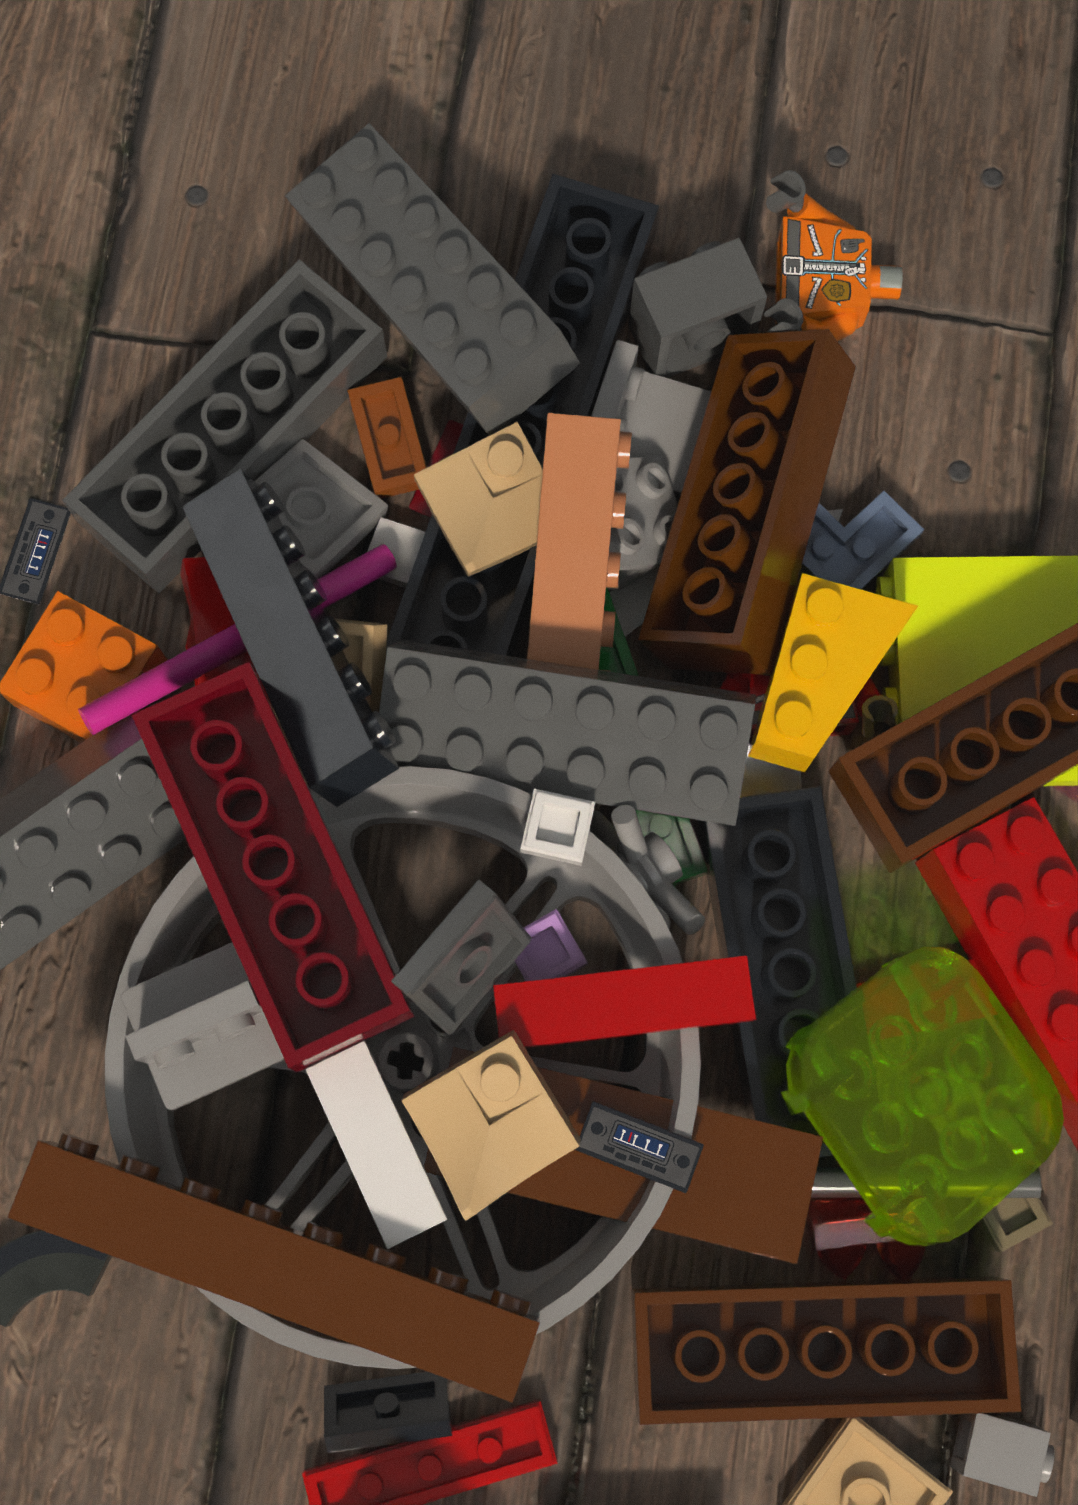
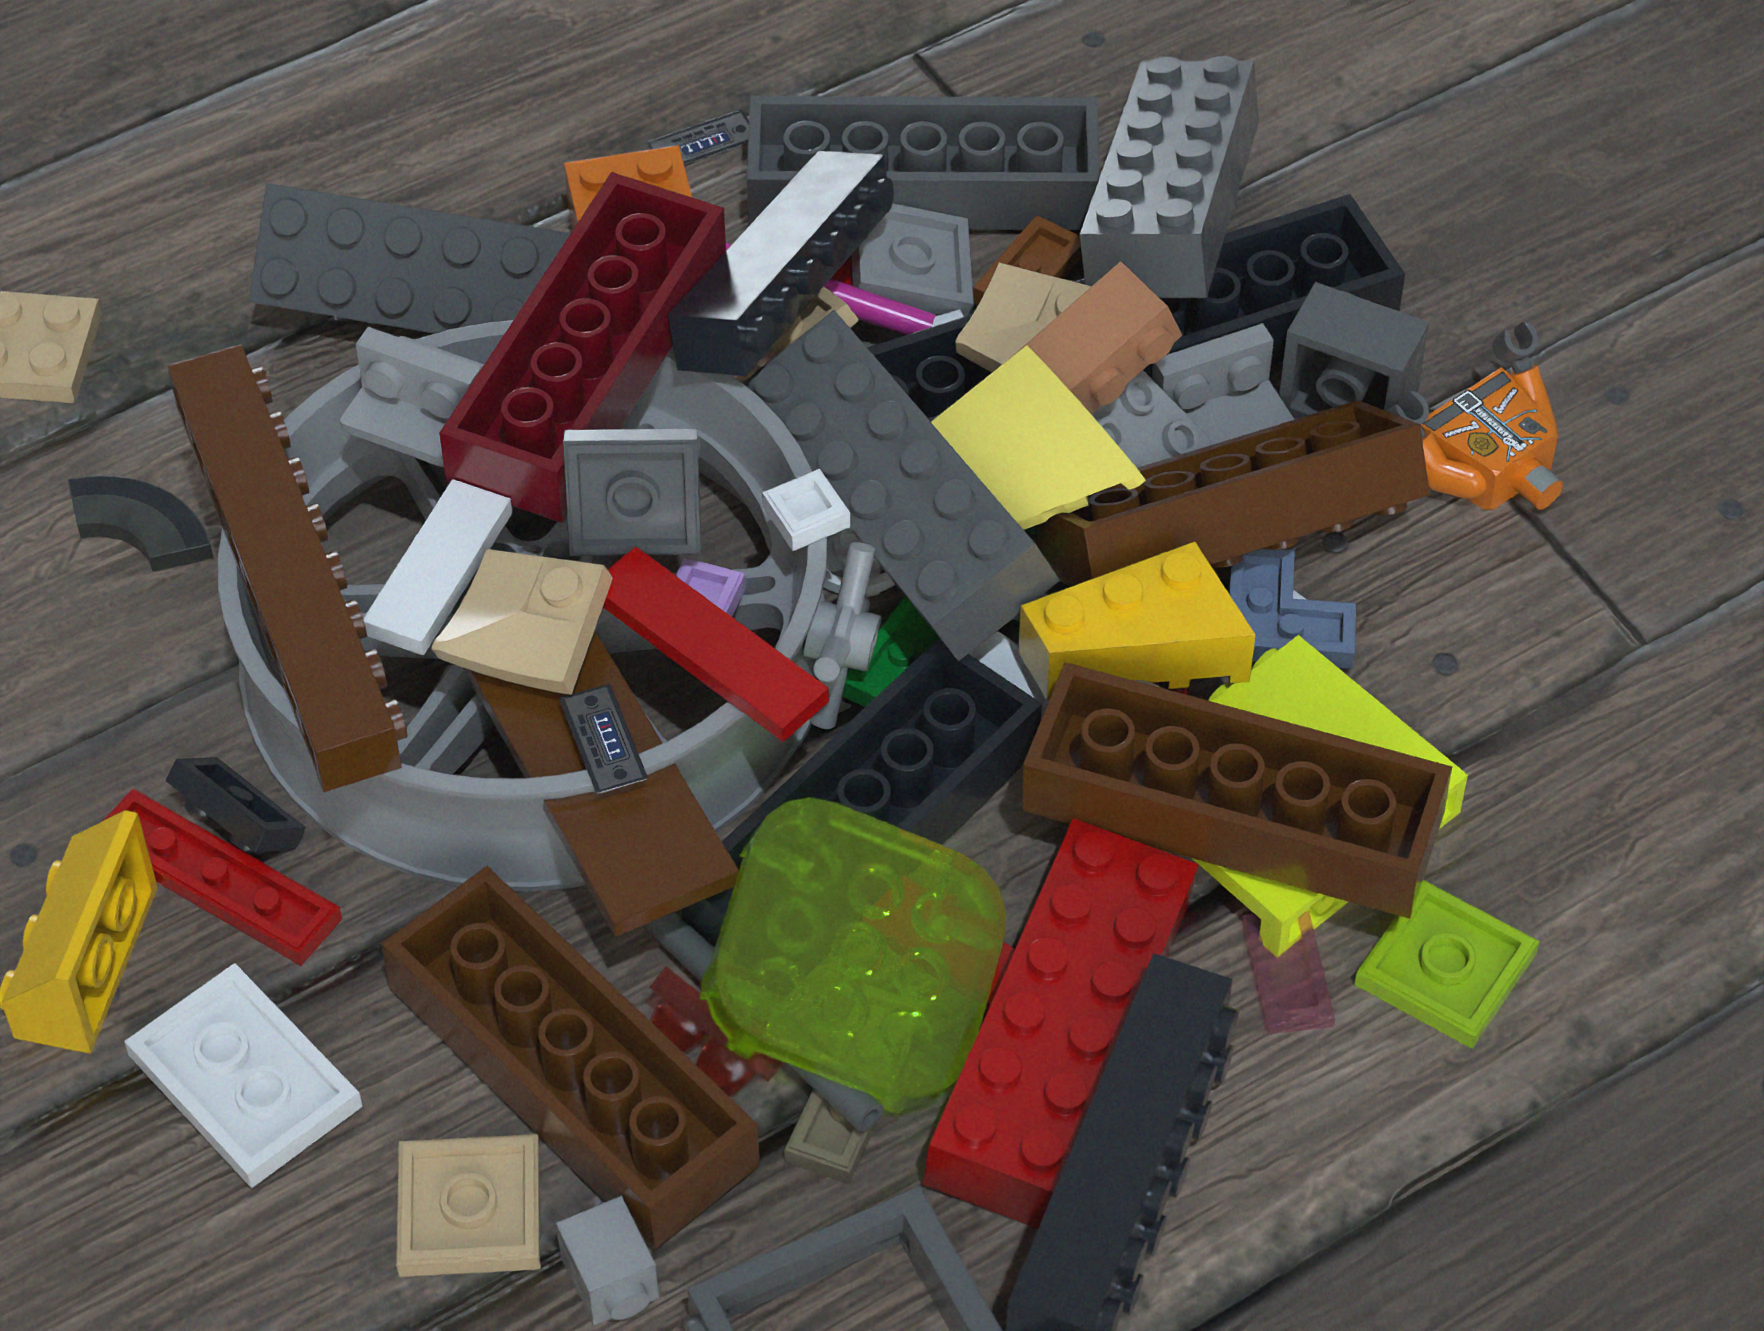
camera: 50 degrees right, 25 degrees down
(626, 609) = (1034, 442): none -> light yellow slope

